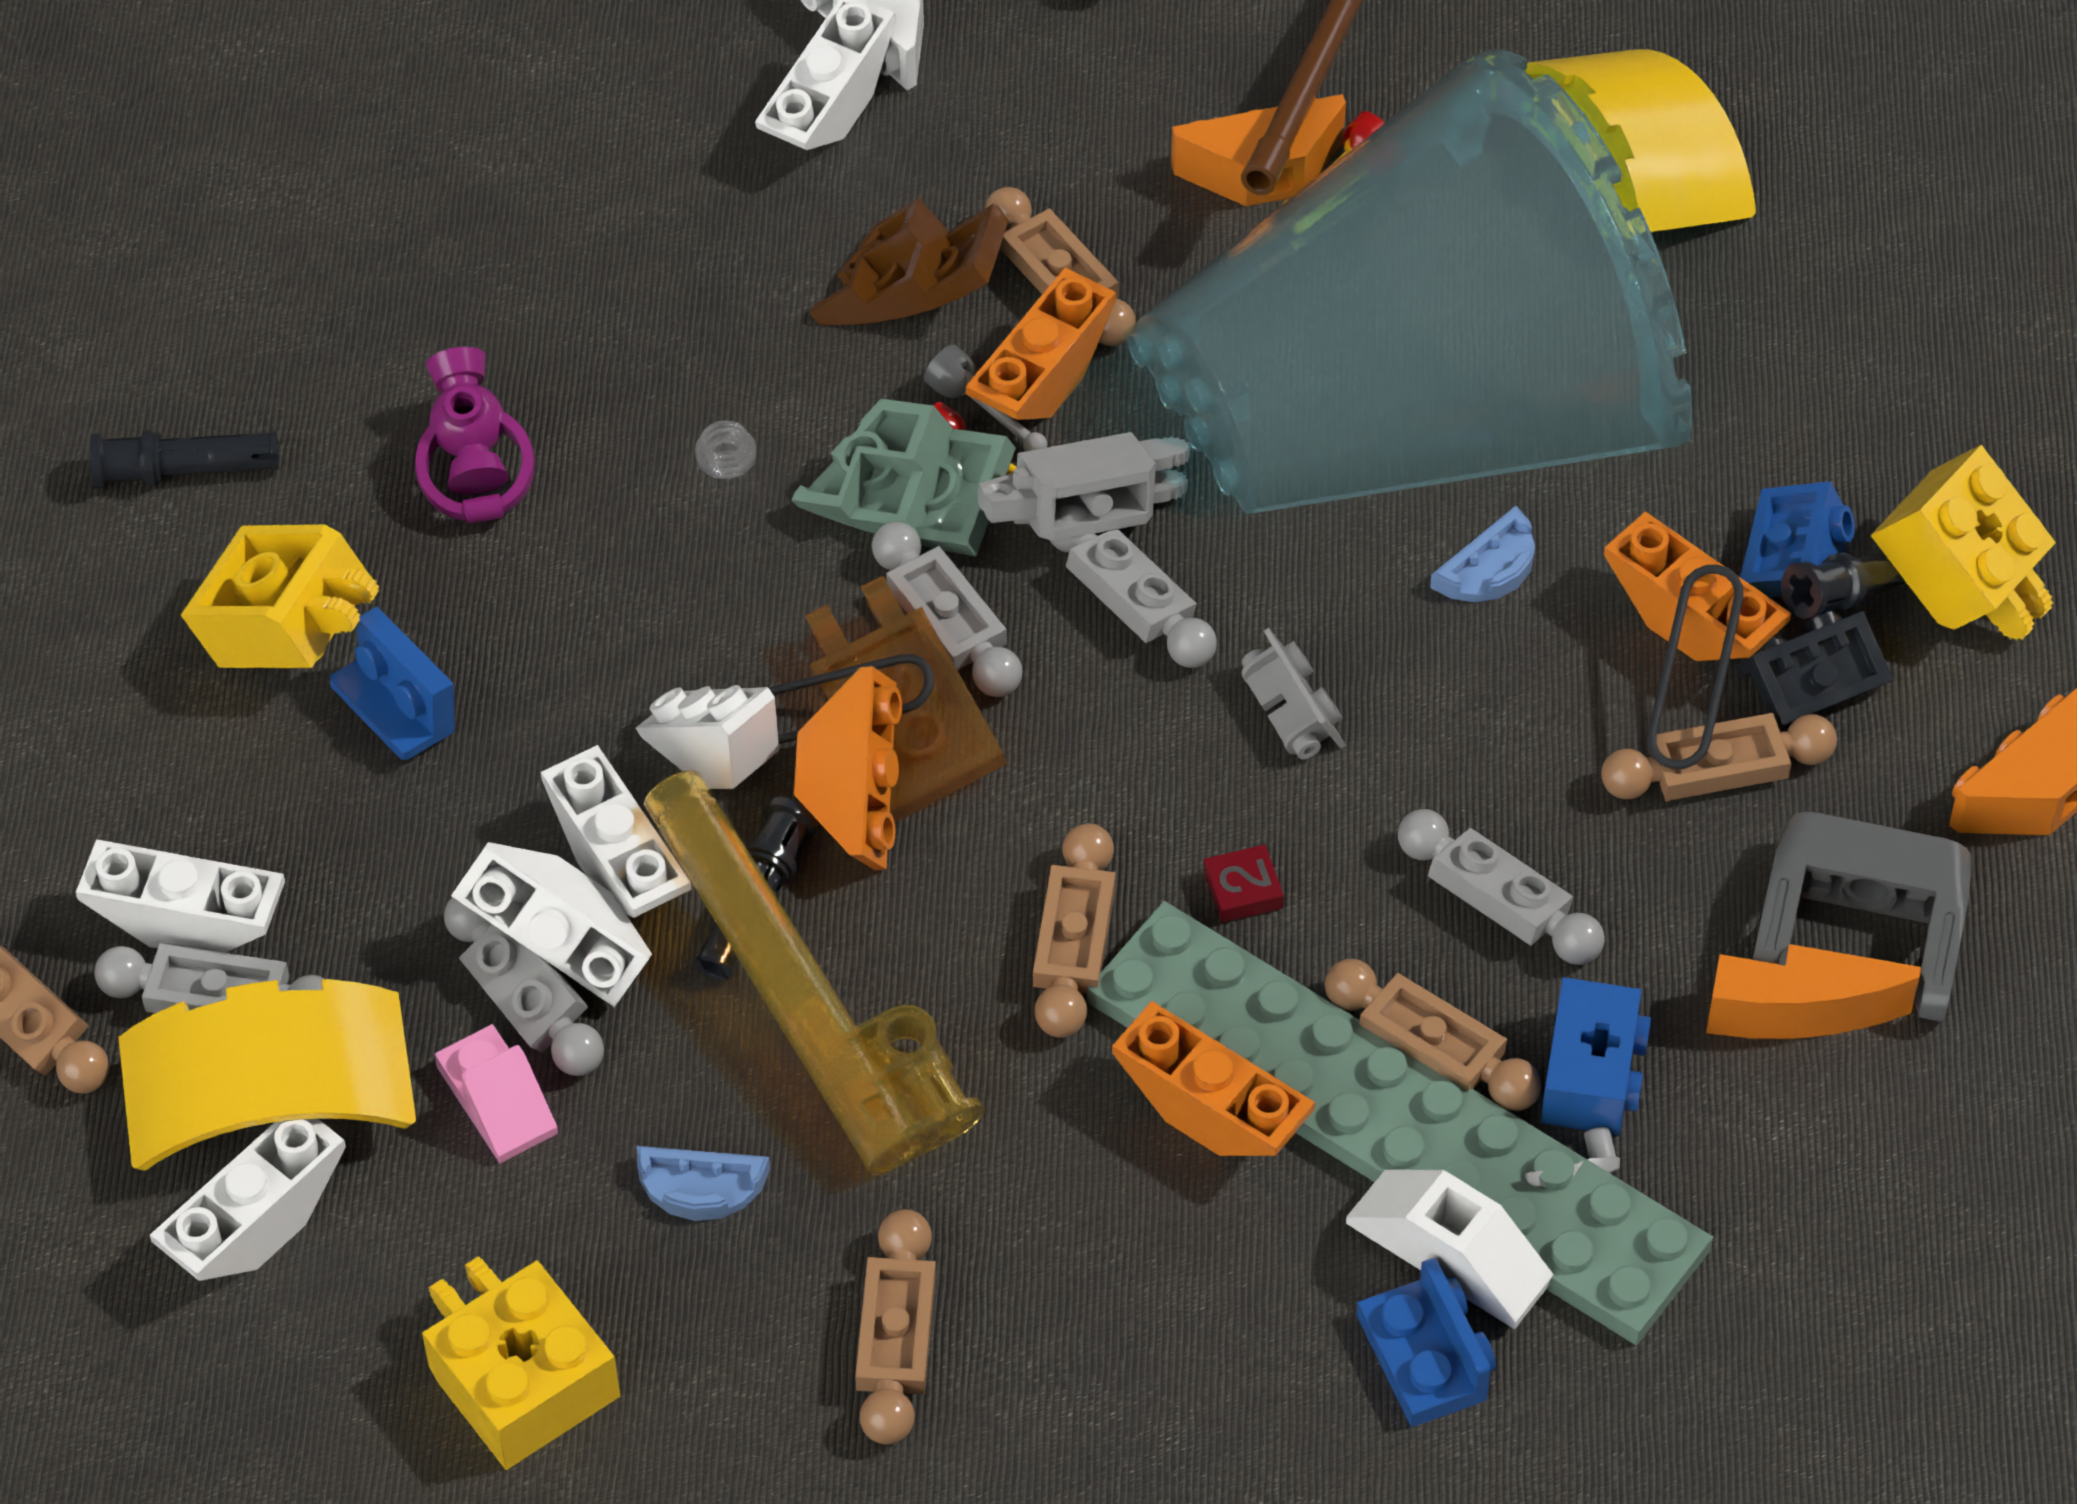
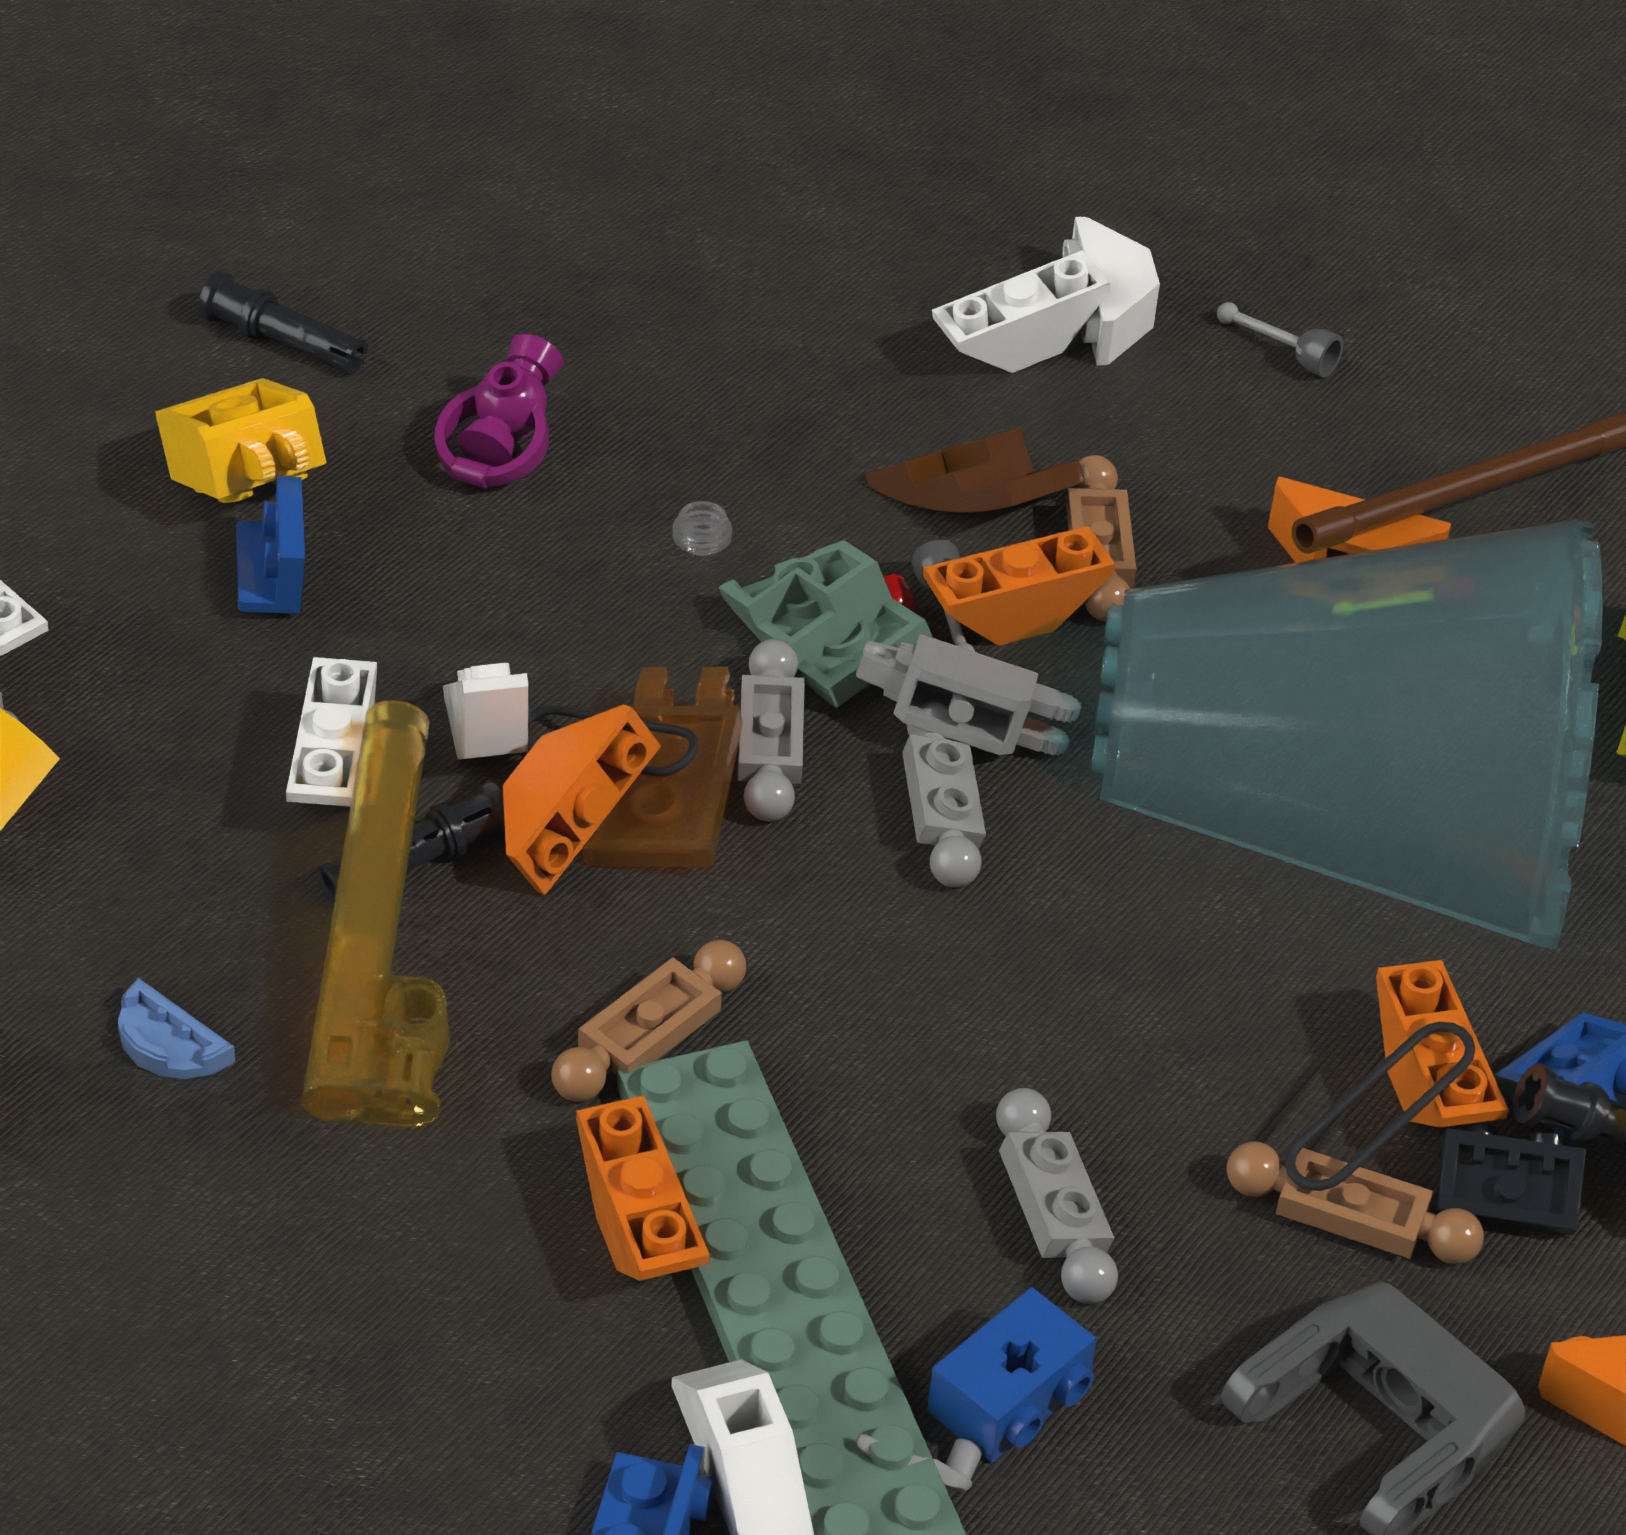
camera: 30 degrees right, 10 degrees down
(497, 1092) = (71, 879): bright pink slope -> none
(527, 991) = (168, 811): light grey plate -> none
(556, 916) = (226, 762): white slope -> none
(895, 1326) = (206, 1234): medium nougat plate -> none
(1243, 883) = (832, 1068): dark red tile -> none
(1307, 715) = (1006, 948): light grey hinge -> none
(1434, 1033) = (885, 1275): medium nougat plate -> none
(1491, 563) = (1282, 944): medium blue tile -> none
(1809, 995) = (1262, 1441): orange slope -> none

